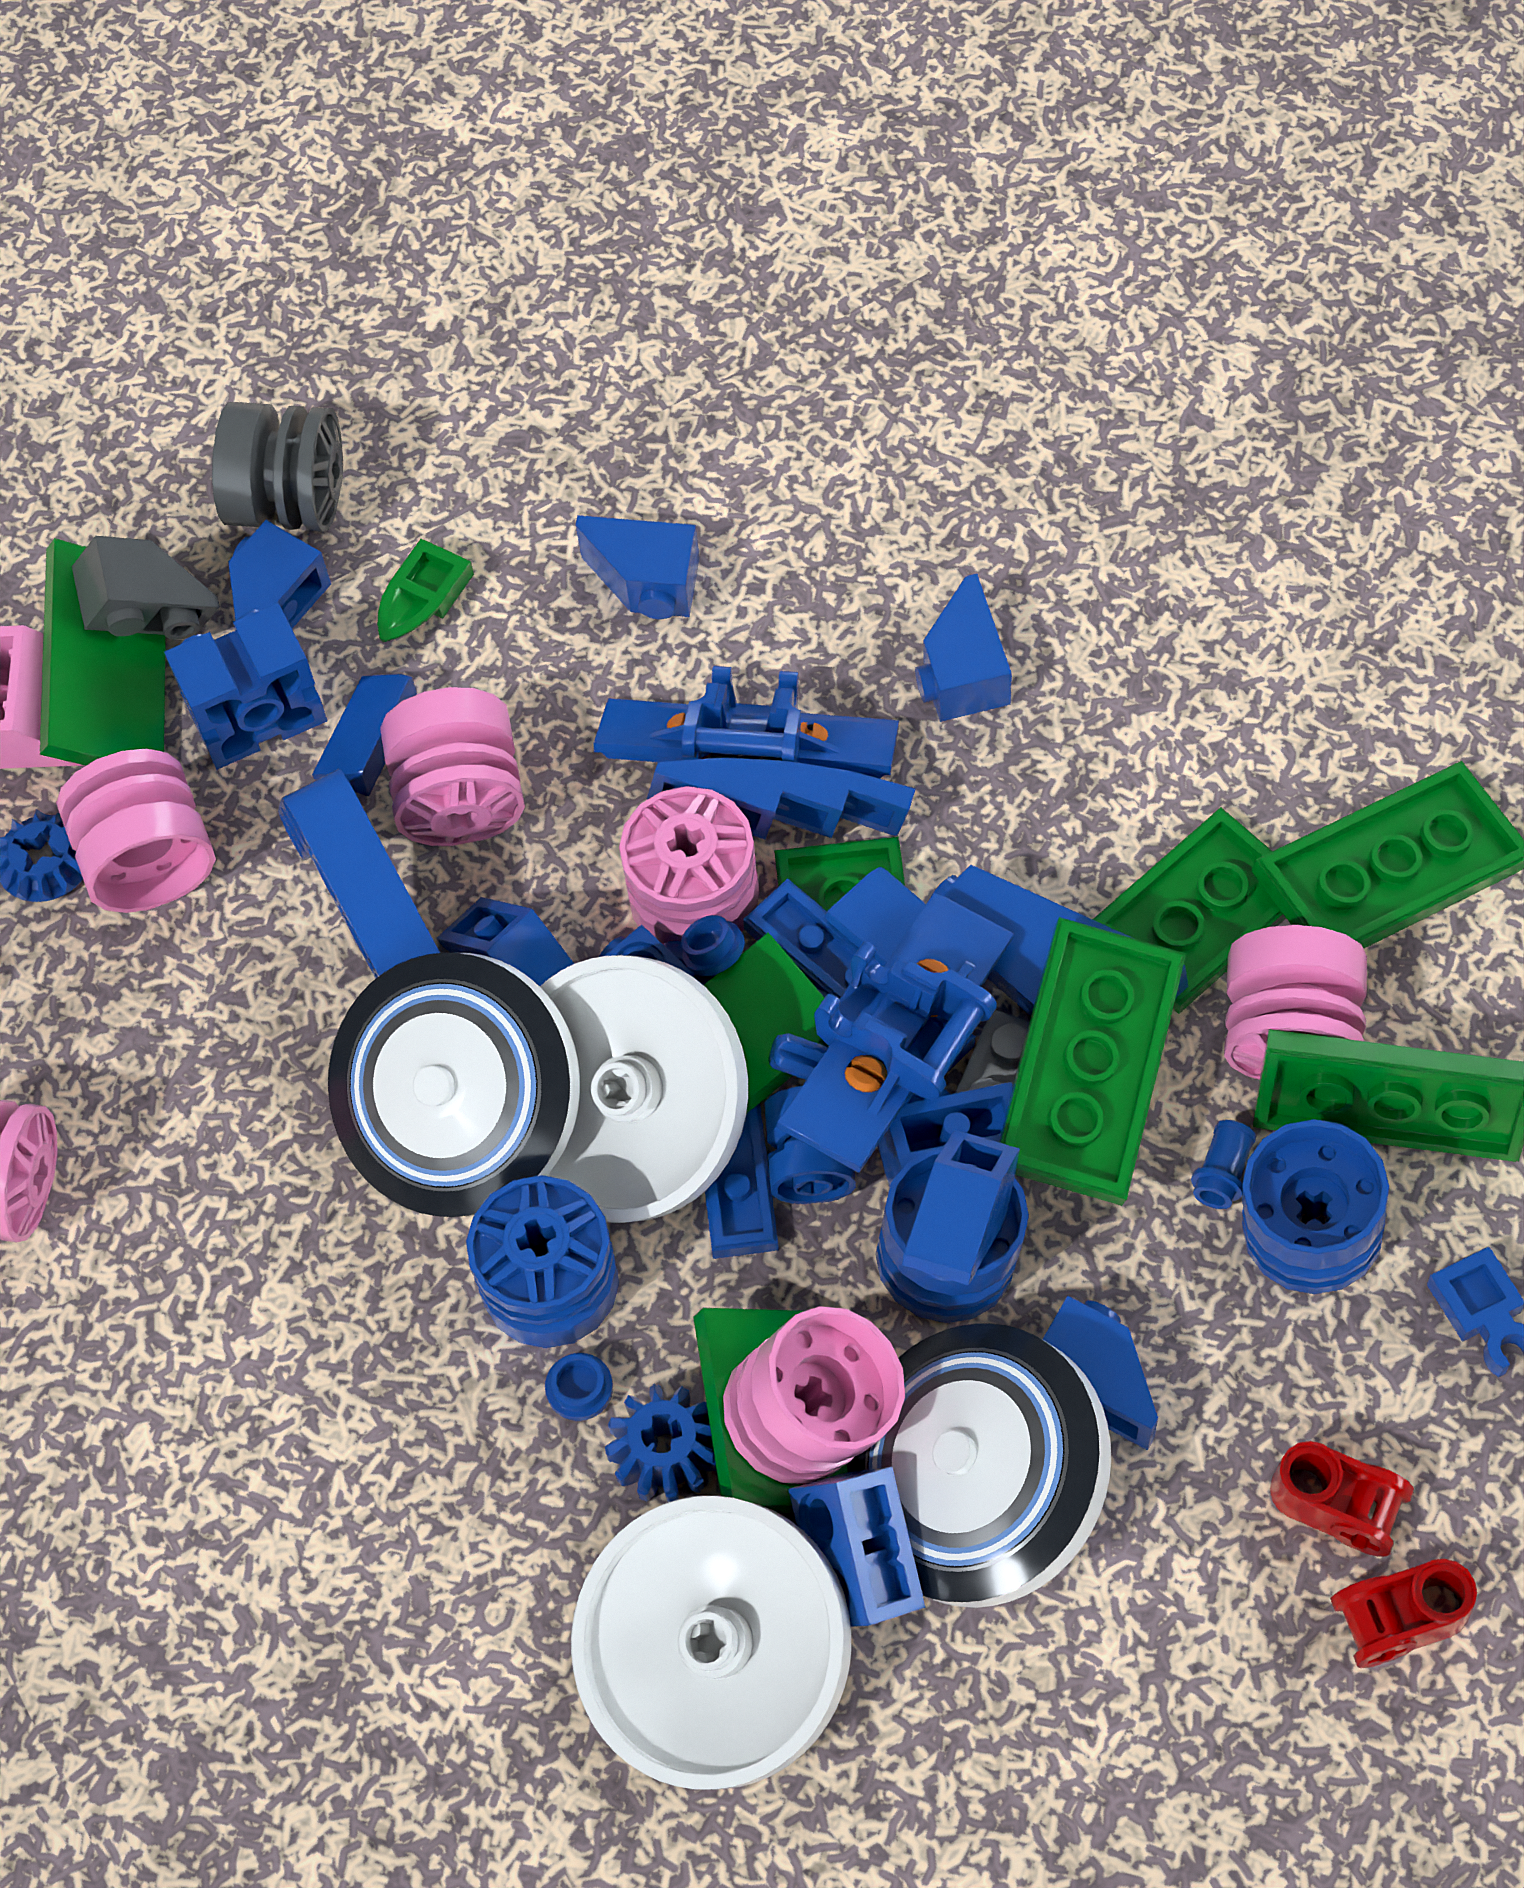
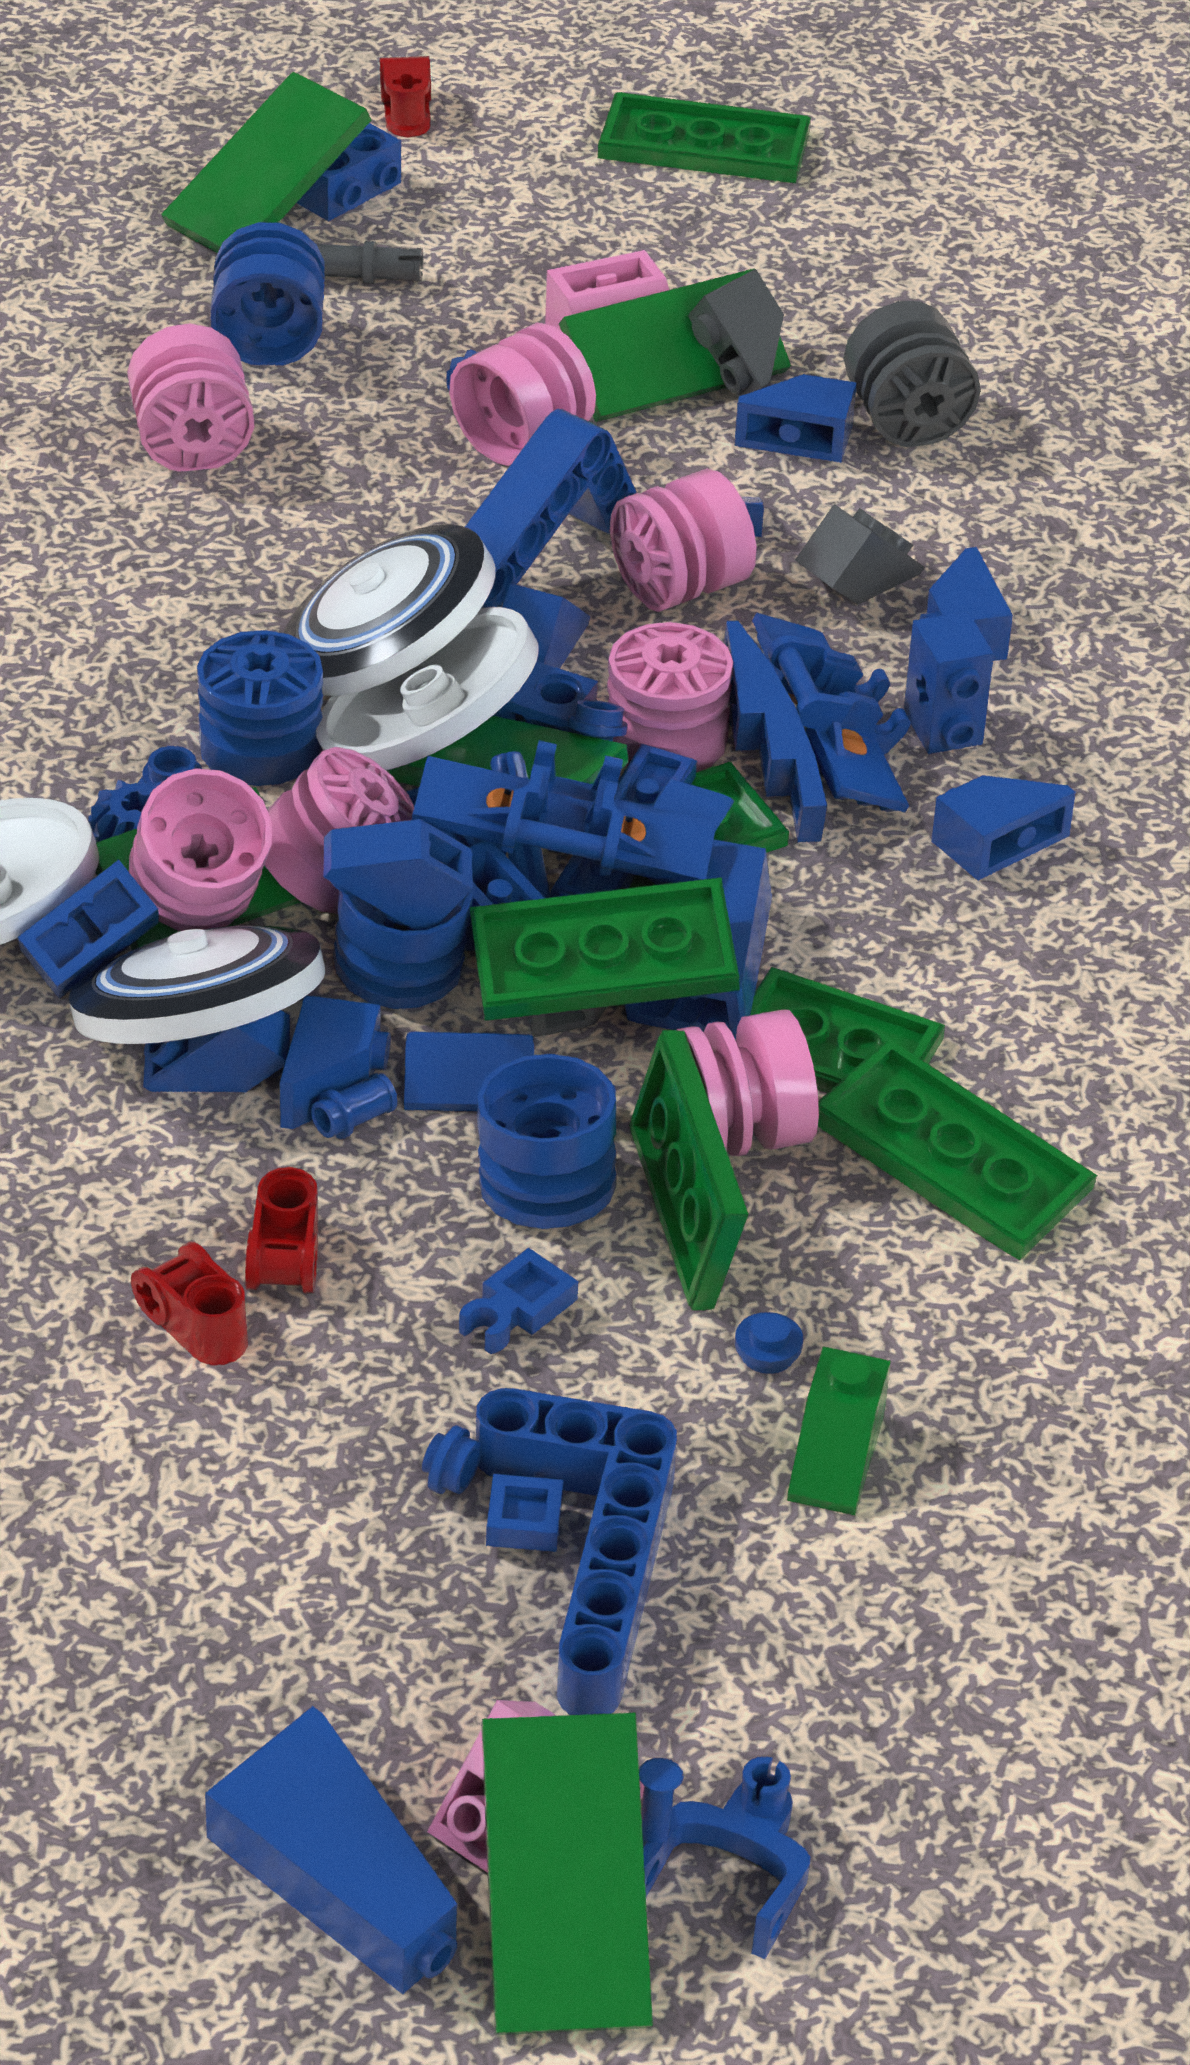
camera: 60 degrees right, 20 degrees down
(246, 685) = (690, 410): blue brick -> none
(422, 588) = (875, 496): green plate -> none
(523, 623) = (858, 555): none -> dark grey slope
(778, 616) = (948, 682): none -> blue brick
(802, 1243) = (334, 793): none -> bright pink wheel
(1150, 1248) = (449, 1067): none -> blue slope
(1163, 1370) = (341, 1111): none -> blue pin

